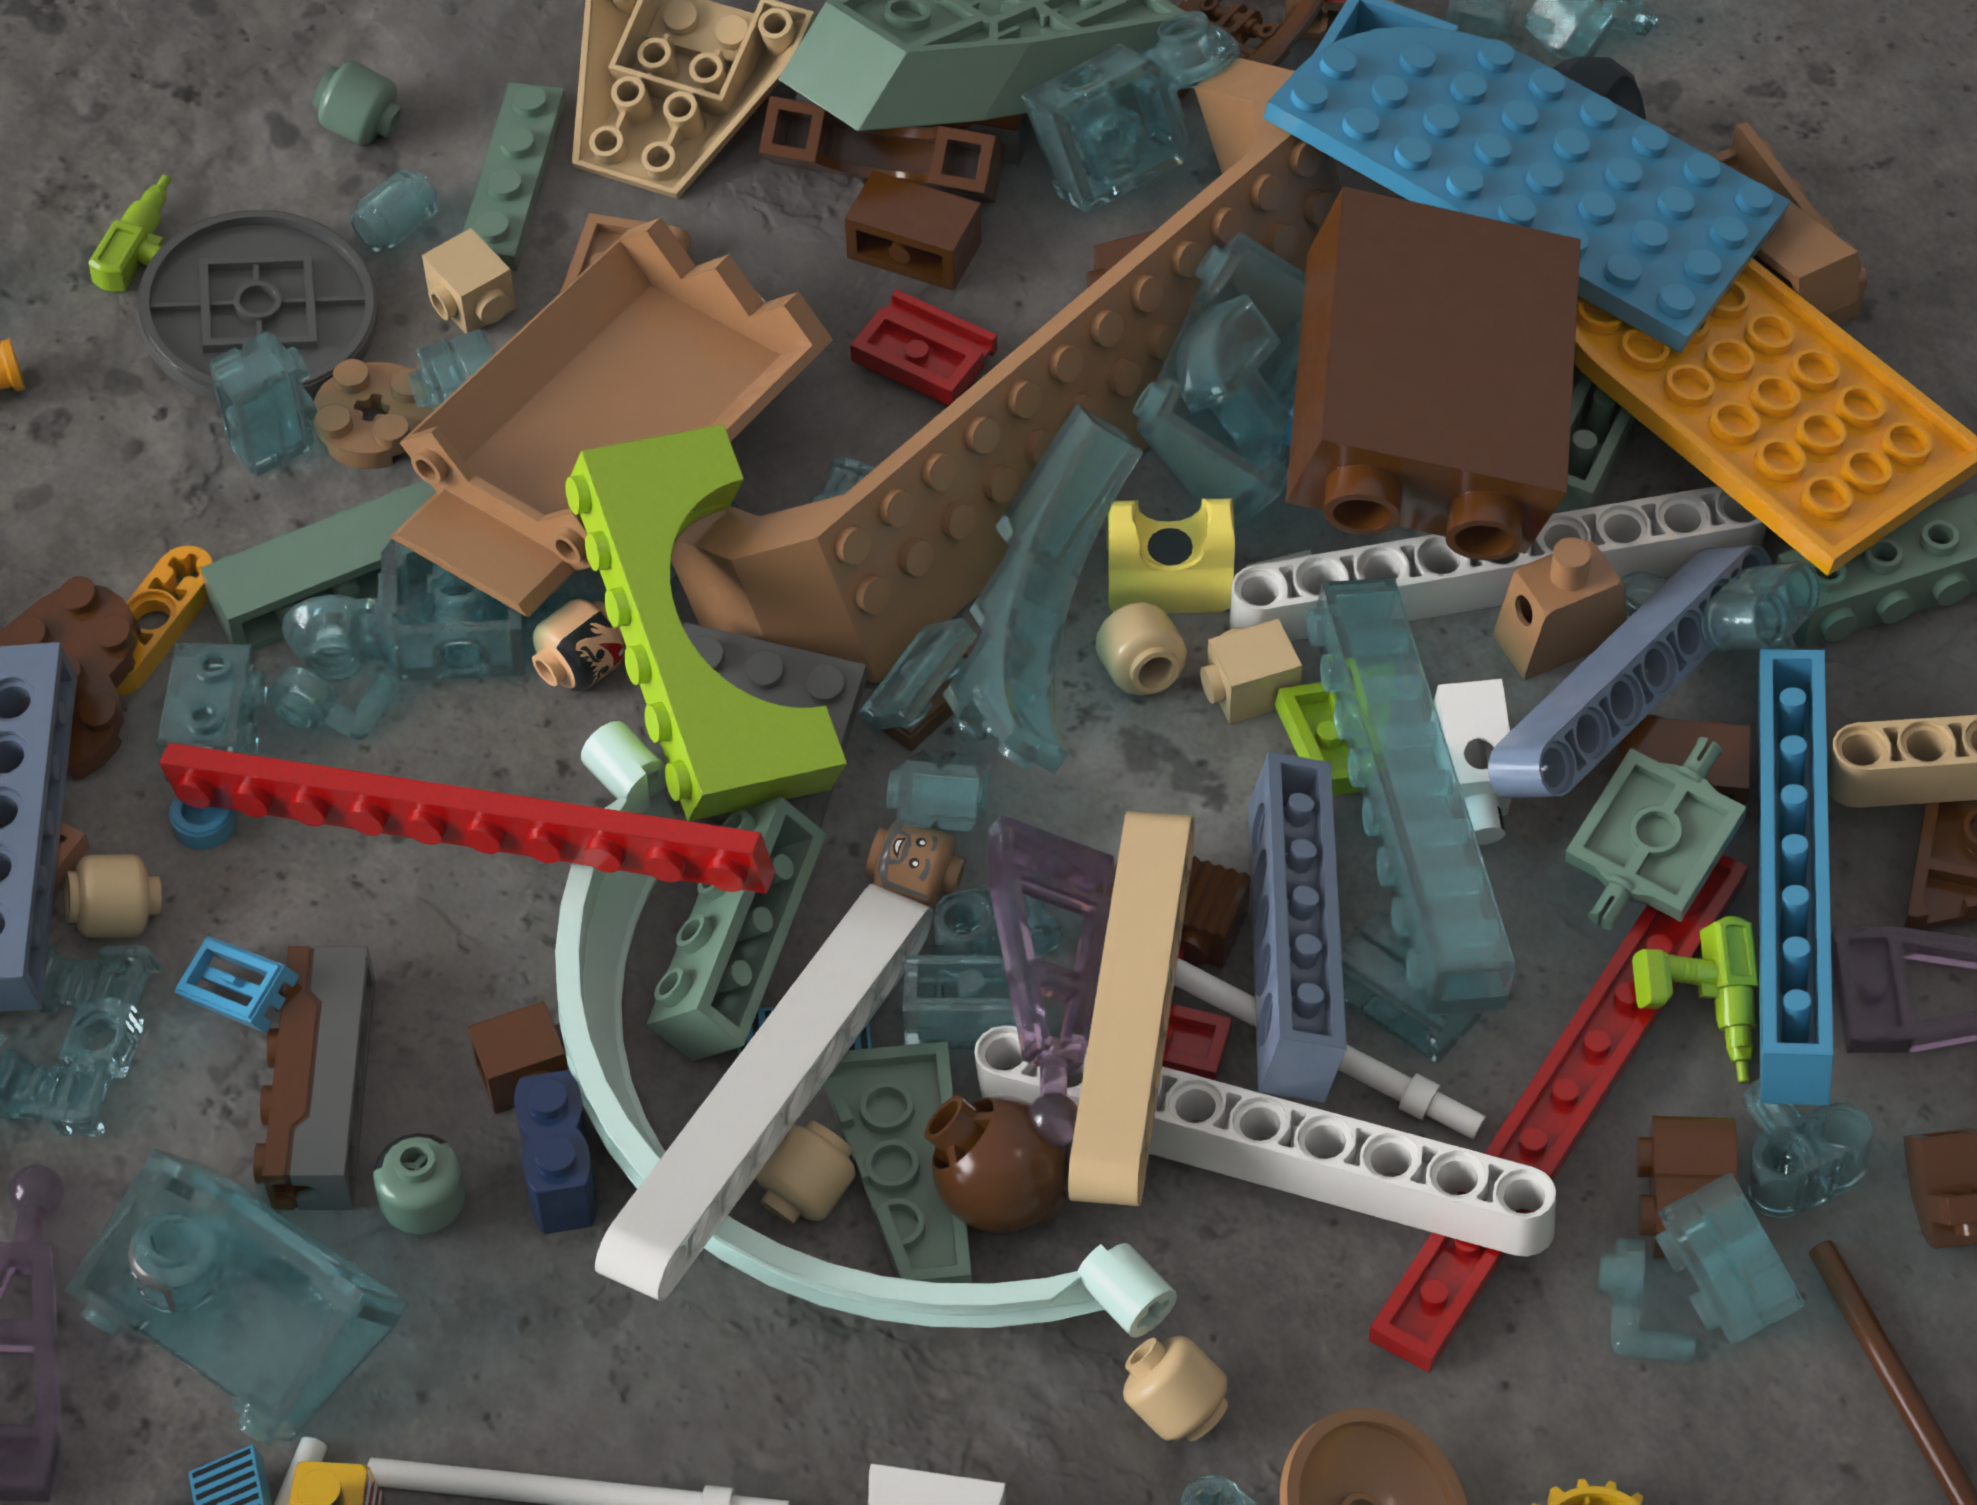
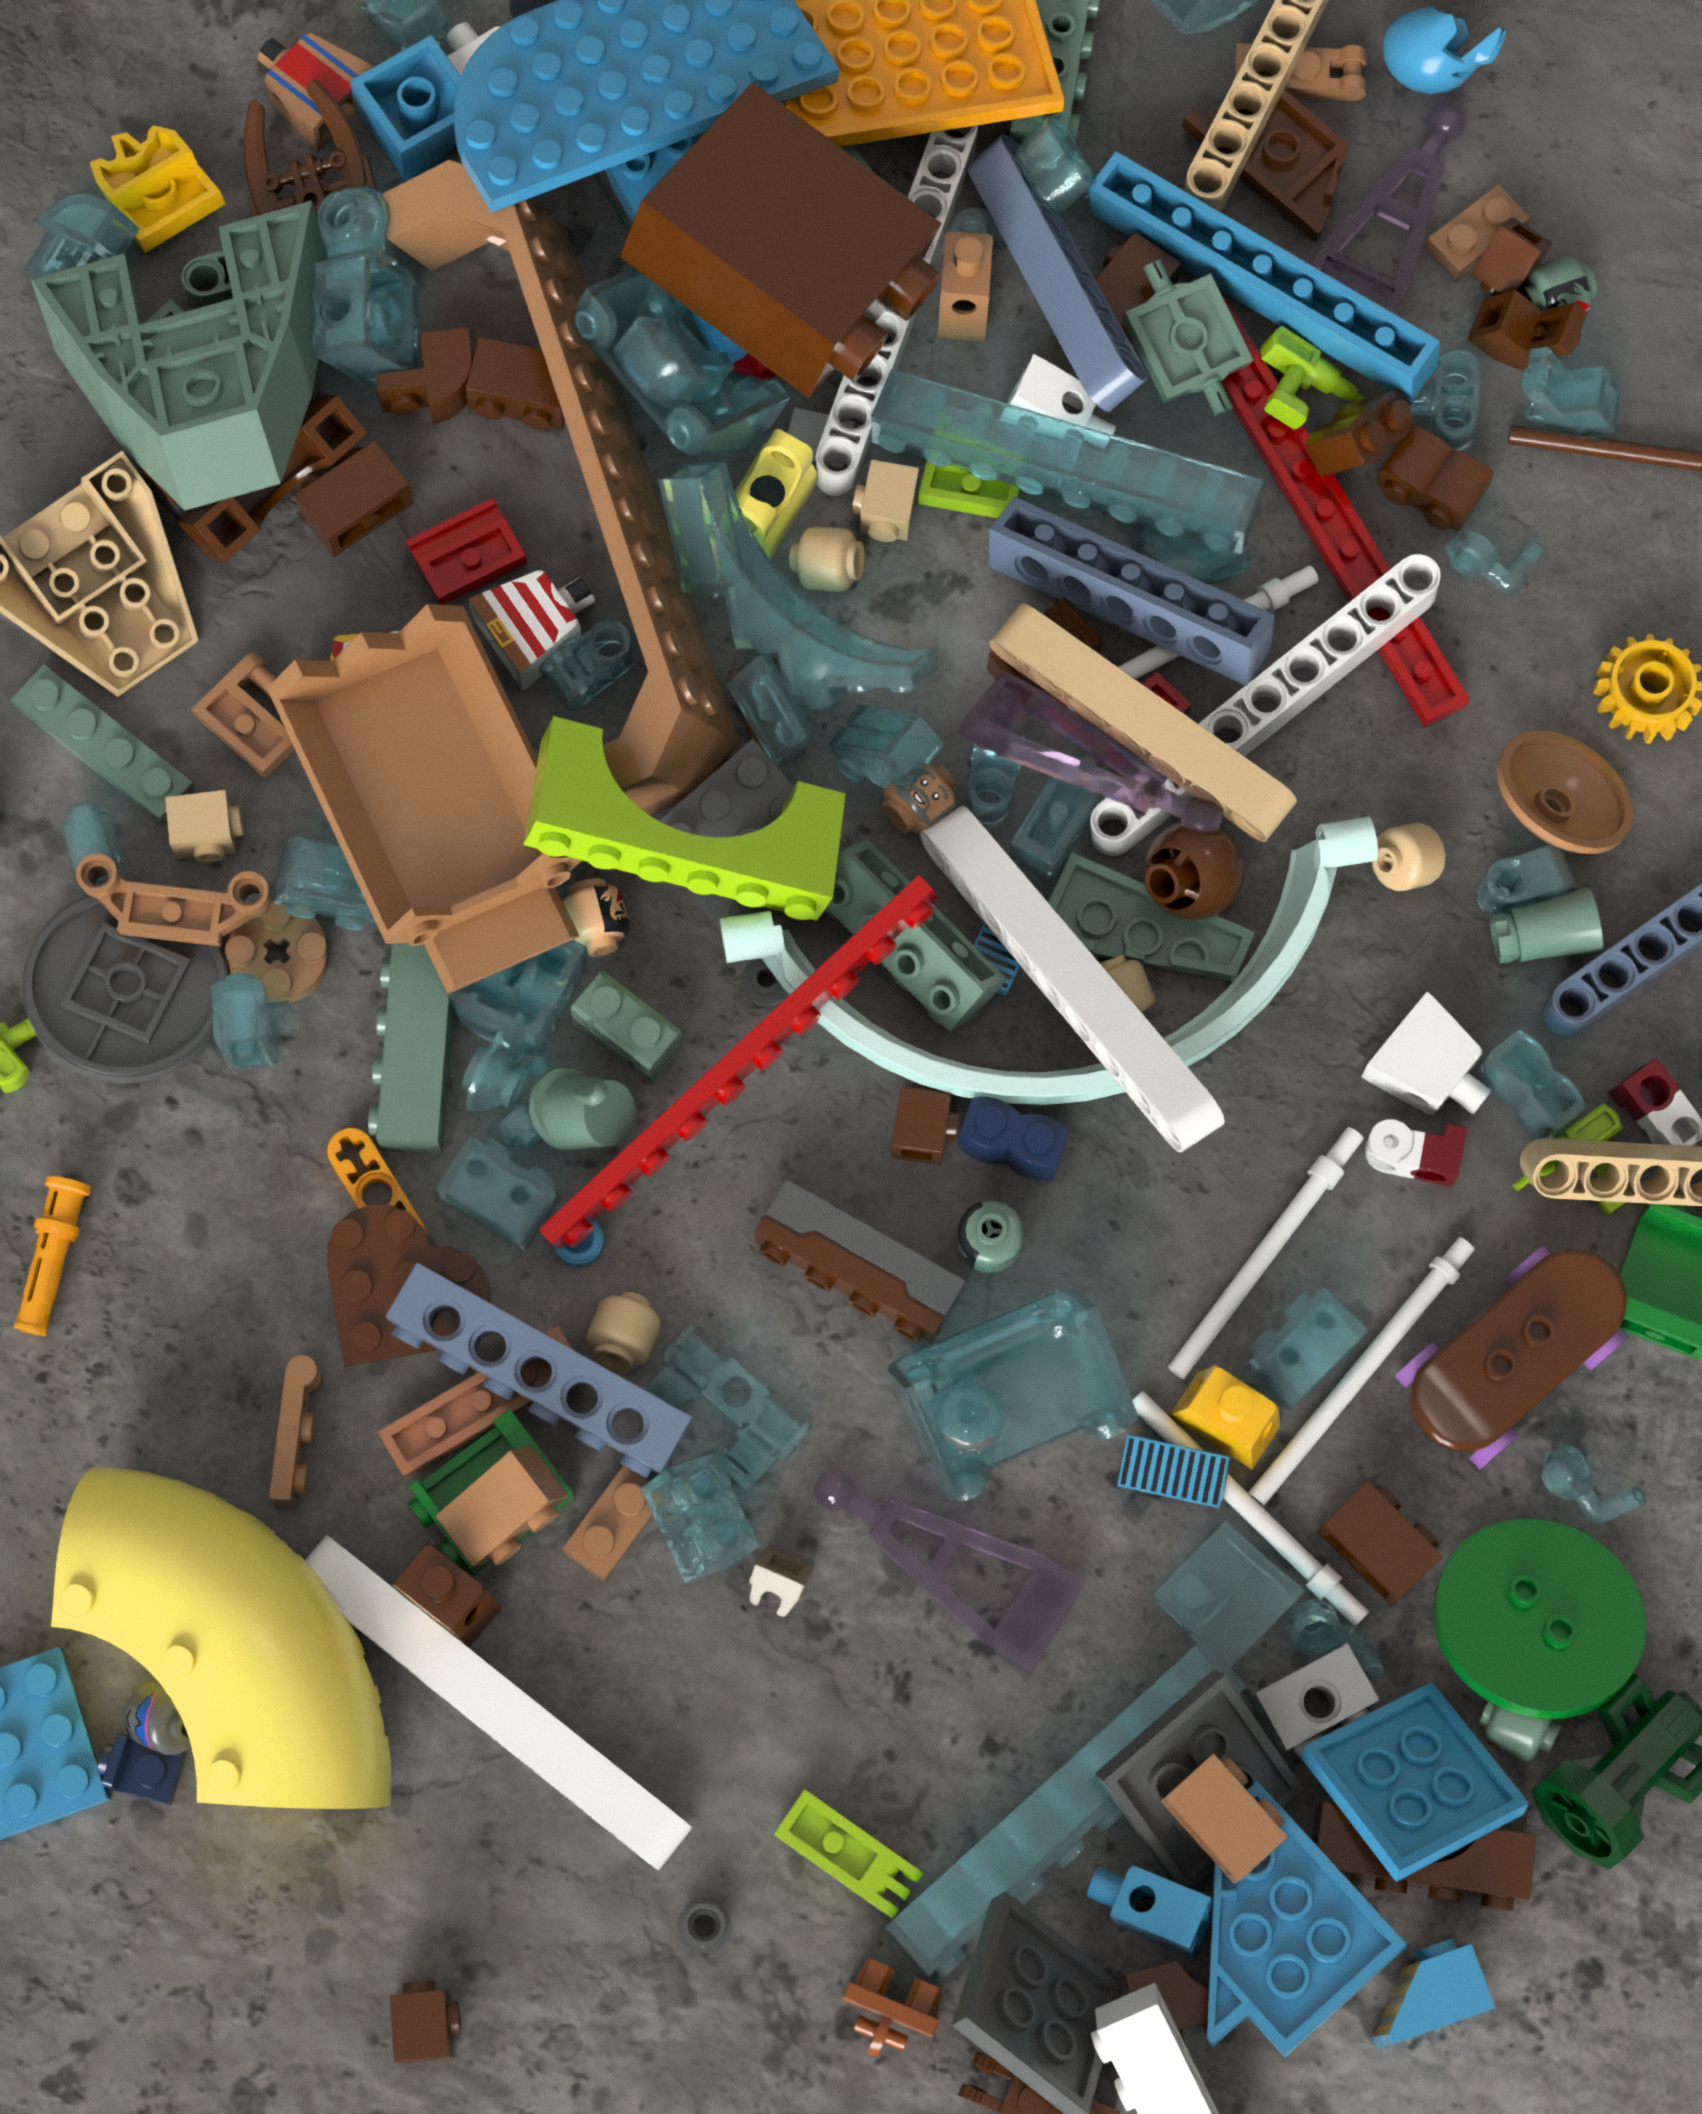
camera: 65 degrees left, 20 degrees up
(261, 996) = (793, 1262): dark azure tile -> none
(338, 719) = (580, 1110): none -> sand green hat
(349, 288) = (173, 911): none -> medium nougat plate
(468, 723) = (626, 1027): none -> sand green brick
(866, 420) = (530, 621): none -> torso
(1082, 224) = (437, 385): none -> reddish brown brick
(1677, 1064) = (1360, 433): none -> reddish brown brick
(1730, 1260) = (1513, 489): clear light blue brick -> none
(1905, 1274) = (1569, 400): none -> clear light blue brick

